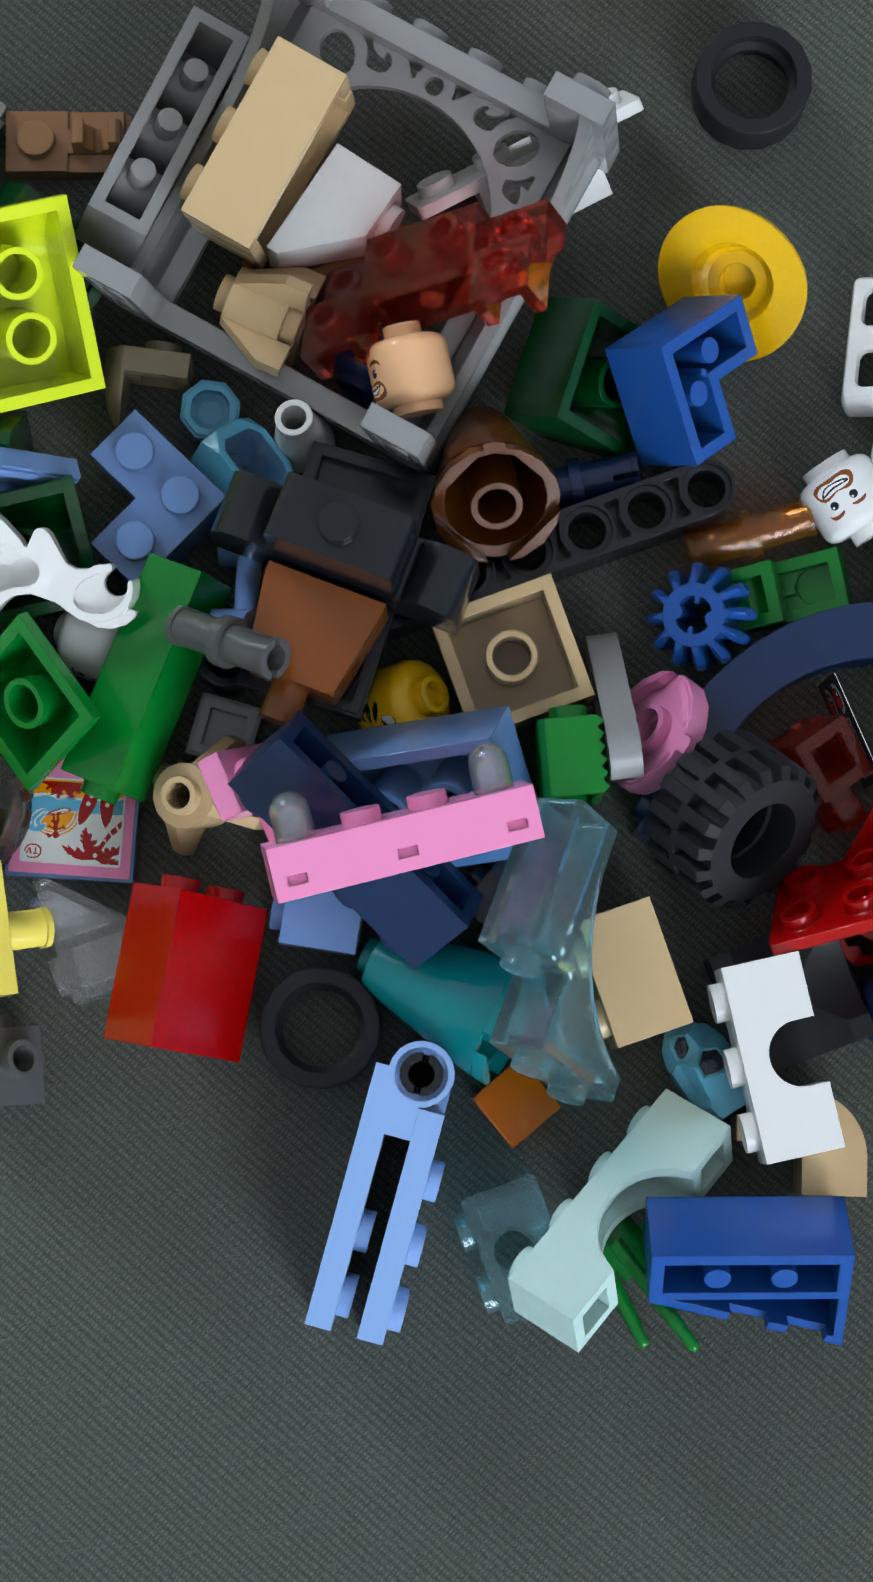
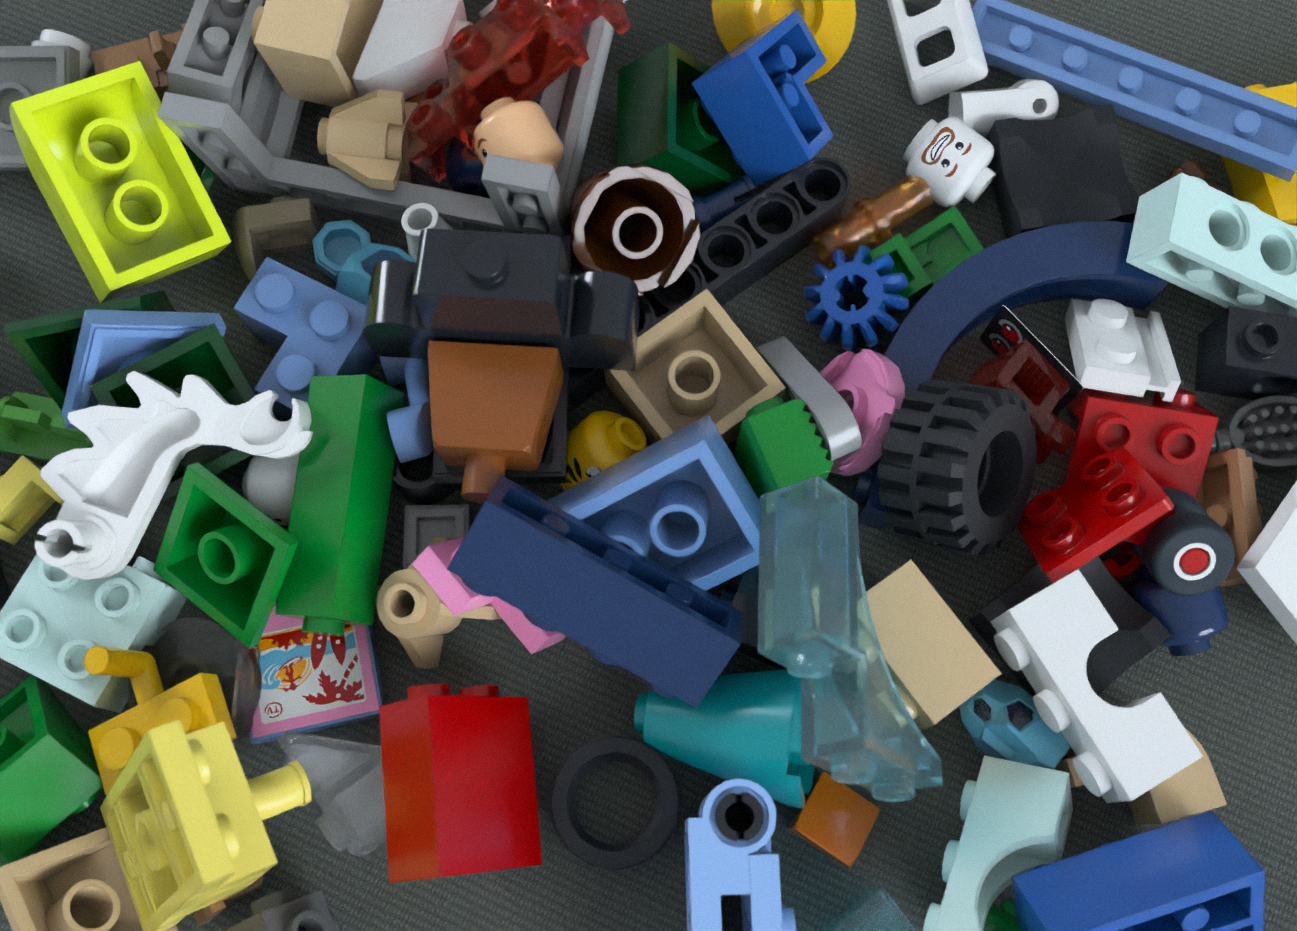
camera: 15 degrees left, 10 degrees down
(228, 642) = (409, 427): dark grey pin -> none
(317, 924) = (578, 691): medium blue brick -> none
(391, 843) = (623, 580): bright pink piece -> none

